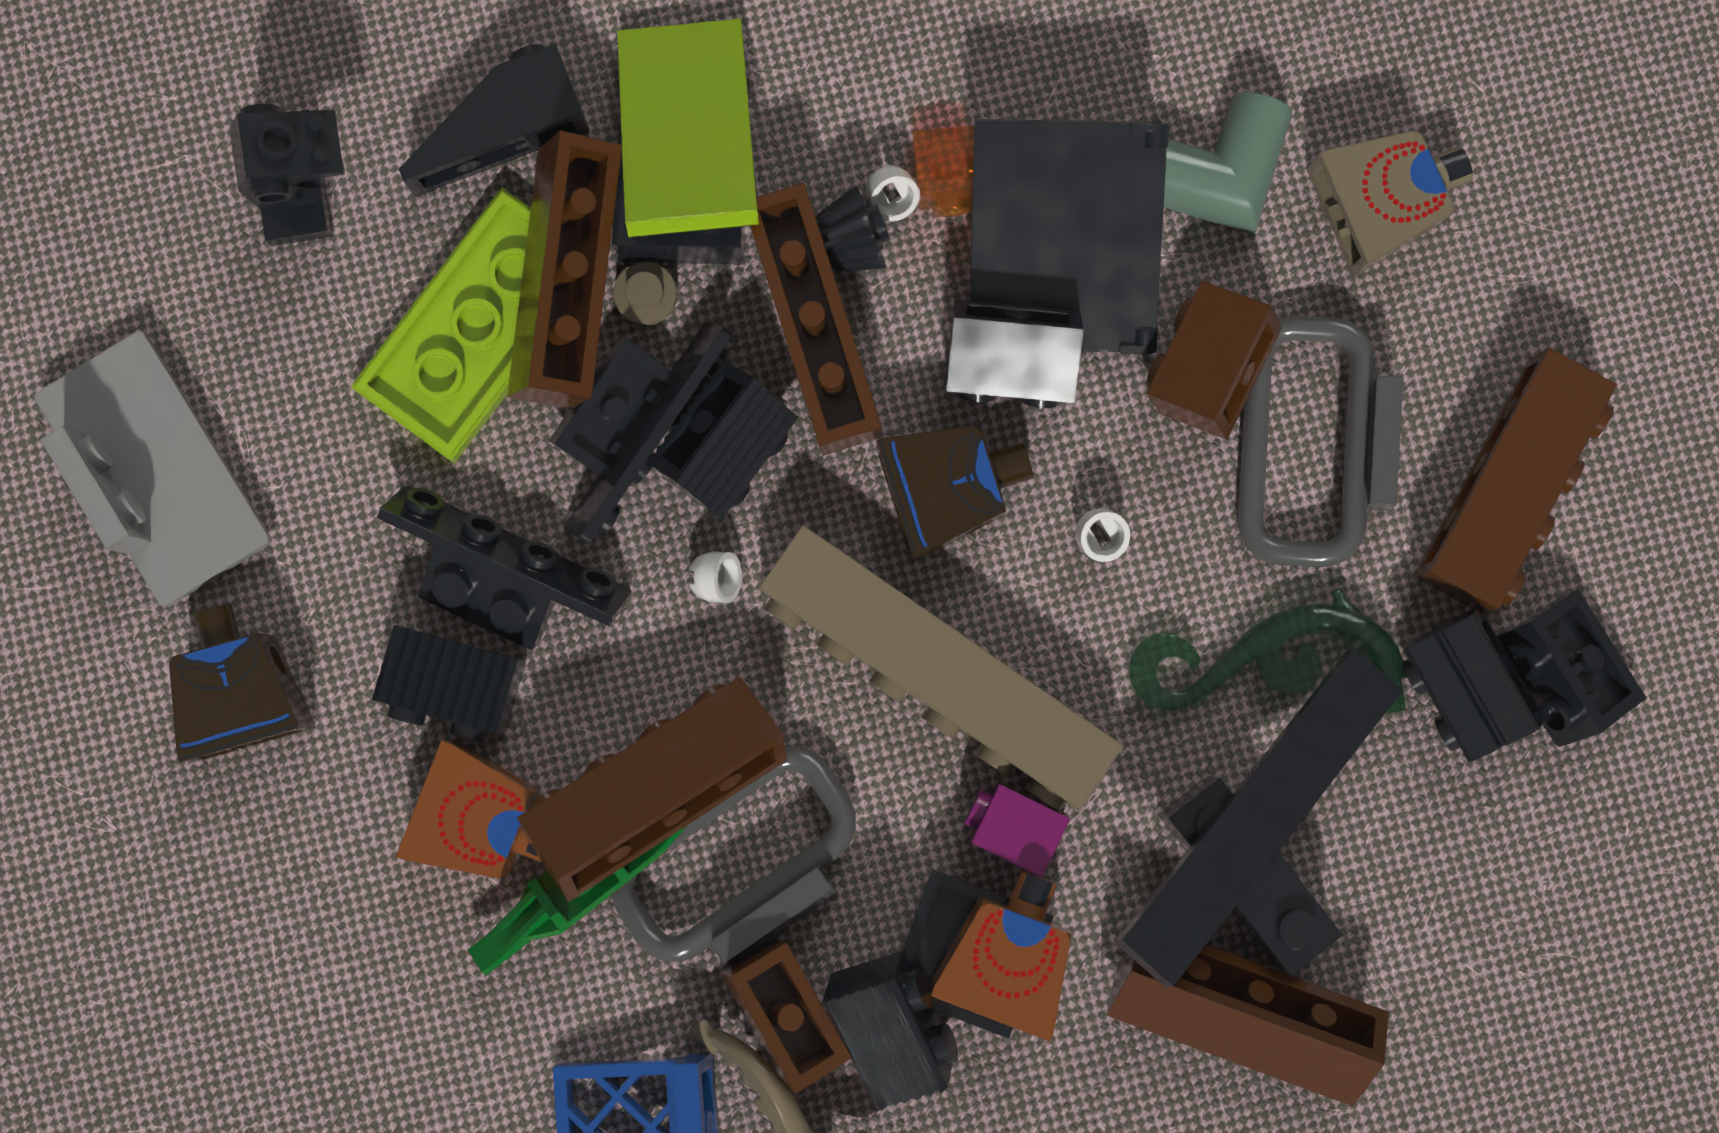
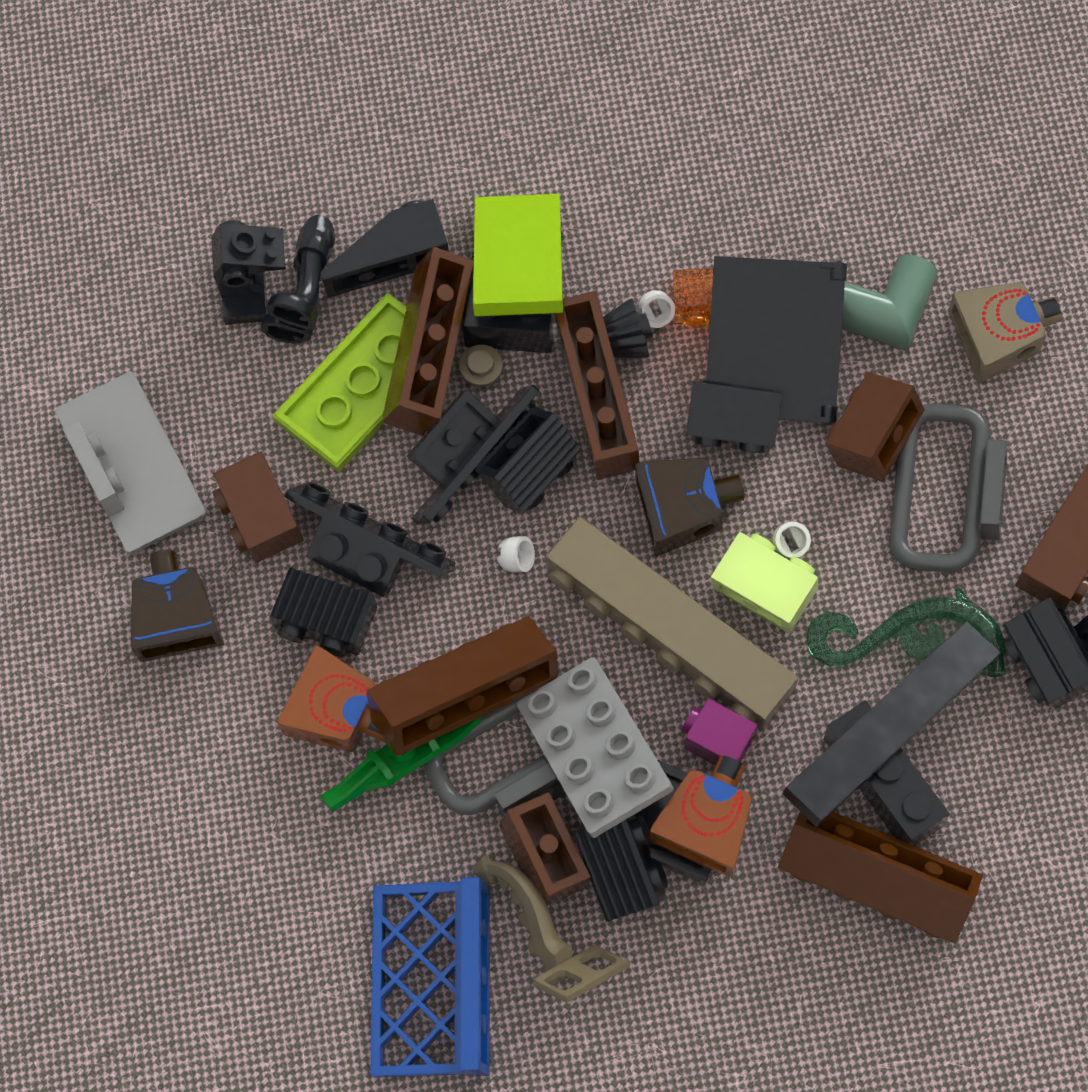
camera: 10 degrees right, 15 degrees down
(338, 529) = (257, 506): none -> reddish brown brick
(373, 234) = (294, 315): none -> black piece
(848, 872) = (594, 747): none -> light grey bracket
(1070, 602) = (765, 580): none -> yellowish green brick

